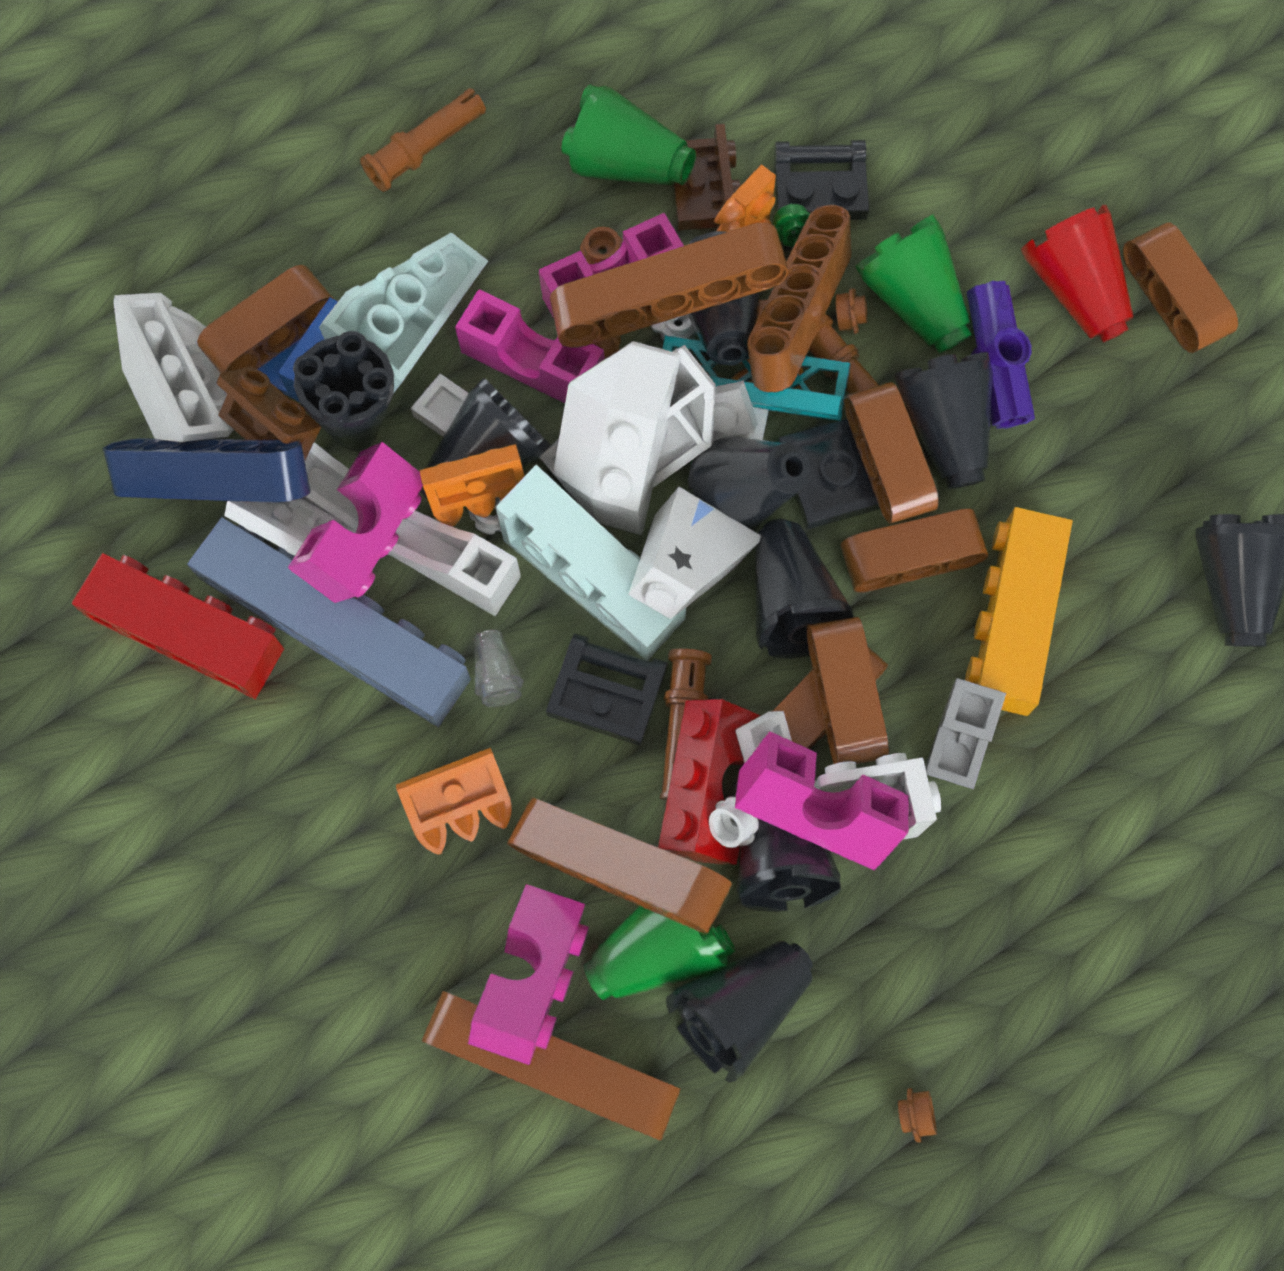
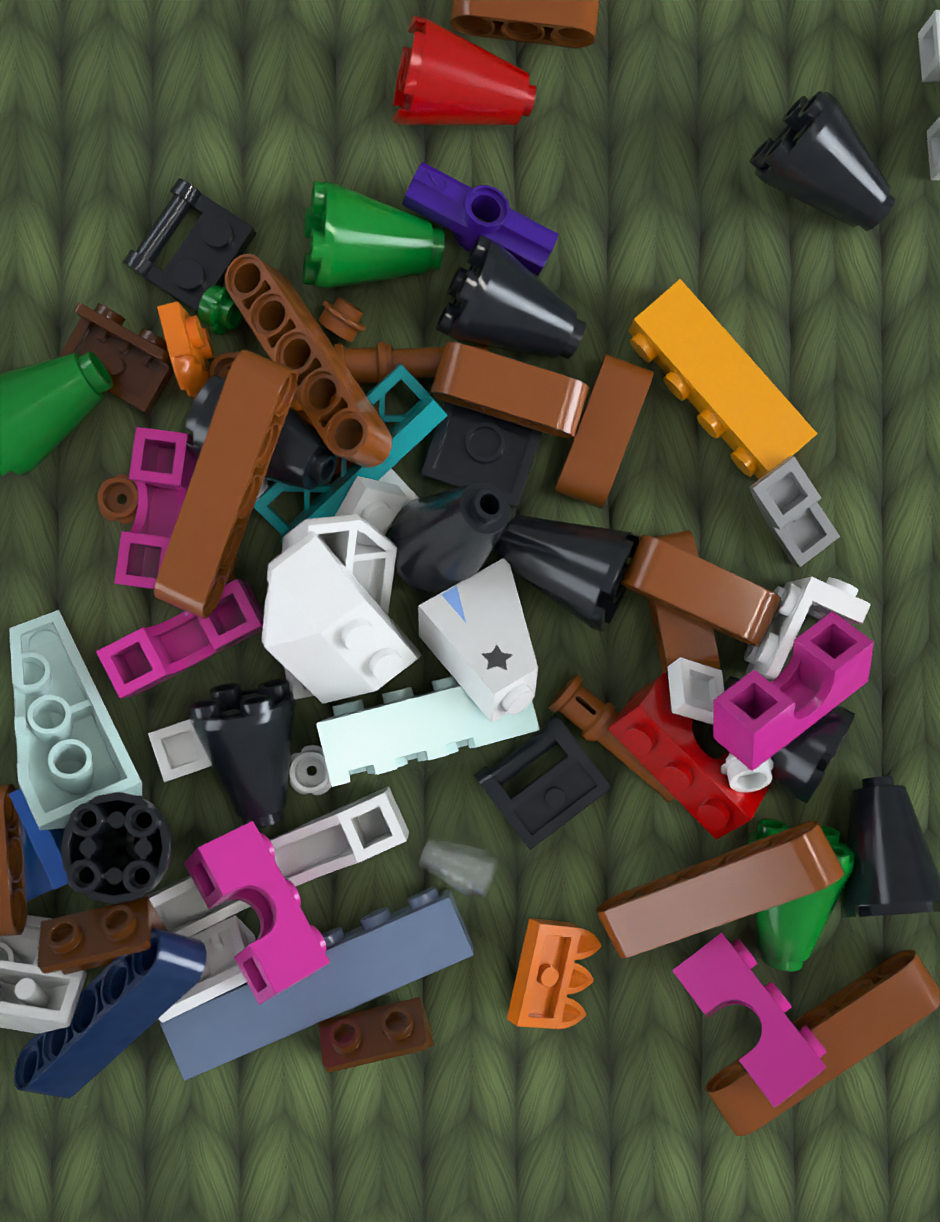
camera: 55 degrees left, 15 degrees up
(179, 625) = (230, 1116): red brick -> none
(315, 689) = (374, 1035): none -> reddish brown bracket
(471, 483) = (289, 782): orange plate -> none

